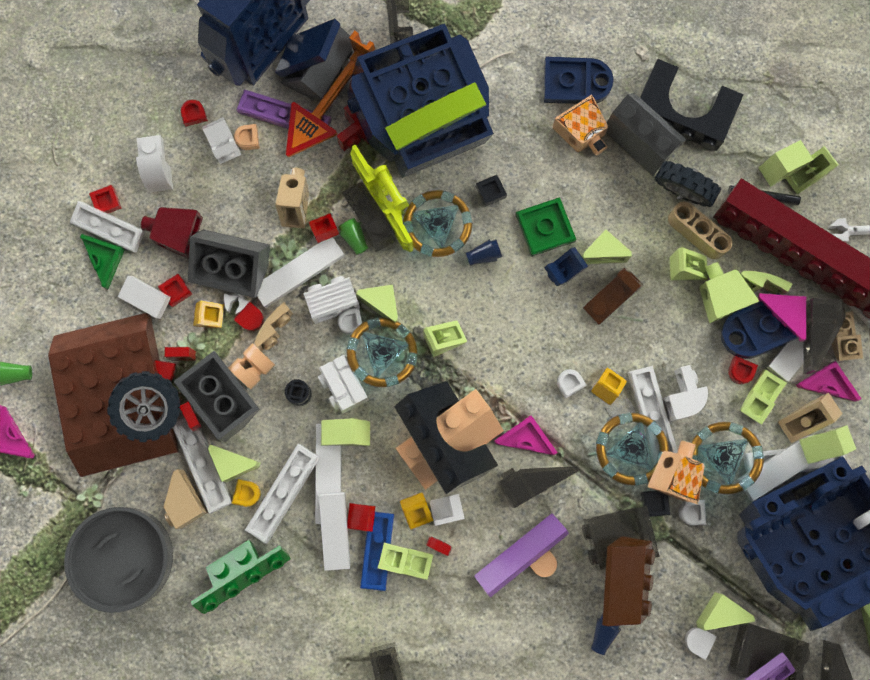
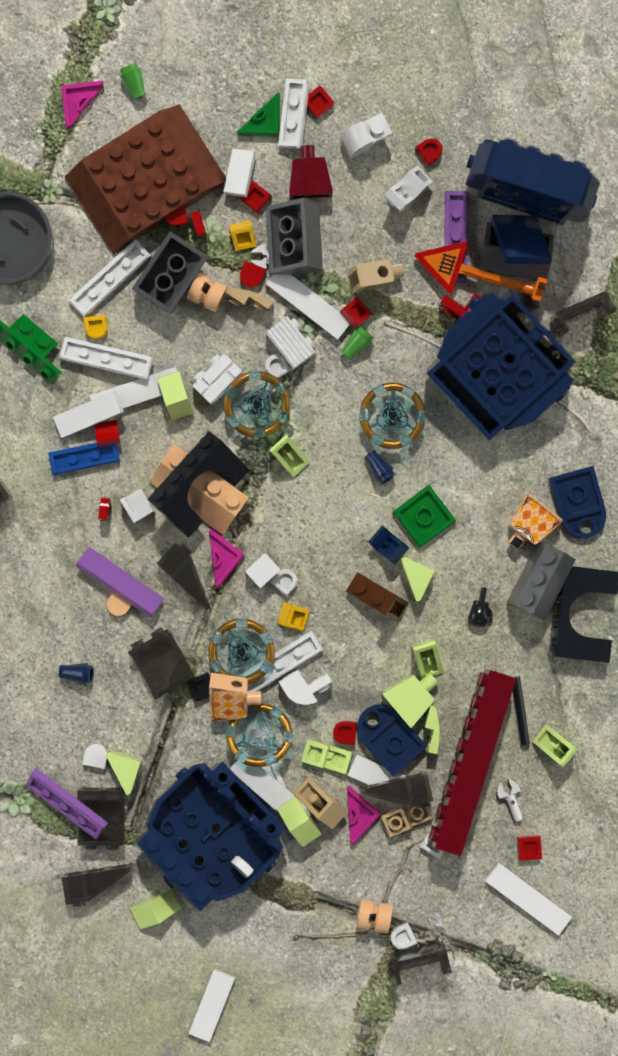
camera: 70 degrees right, 10 degrees up
(135, 429) = (124, 231): black wheel -> none
(182, 501) = (71, 274): tan slope -> none
(190, 416) = (145, 255): red tile -> none
(231, 465) = (117, 304): yellowish green slope -> none
(247, 137) = (422, 210): light nougat tile -> none
(300, 396) = (197, 342): black wheel -> none
(370, 216) = (381, 349): clear smoke slope -> none
(380, 184) = (407, 353): neon yellow piece -> none
(380, 300) = (304, 388): yellowish green slope -> none
(405, 561) = (82, 484): yellowish green slope -> none
(416, 510) = (128, 479): yellow slope -> none
(435, 116) = (481, 383): lime slope -> none
(491, 190) = (442, 455): black plate -> none
(553, 400) = (262, 570): none -> white panel
(628, 582) = (124, 676): reddish brown slope -> none
(657, 202) = (480, 612): none -> black piece
(687, 184) = (499, 632): black wheel -> none
(692, 513) = (202, 723): white tile -> none
(711, 231) = (464, 670): tan beam -> none
(785, 163) = (555, 721): yellowish green slope -> none
(789, 311) = (410, 758): dark pink tile -> none

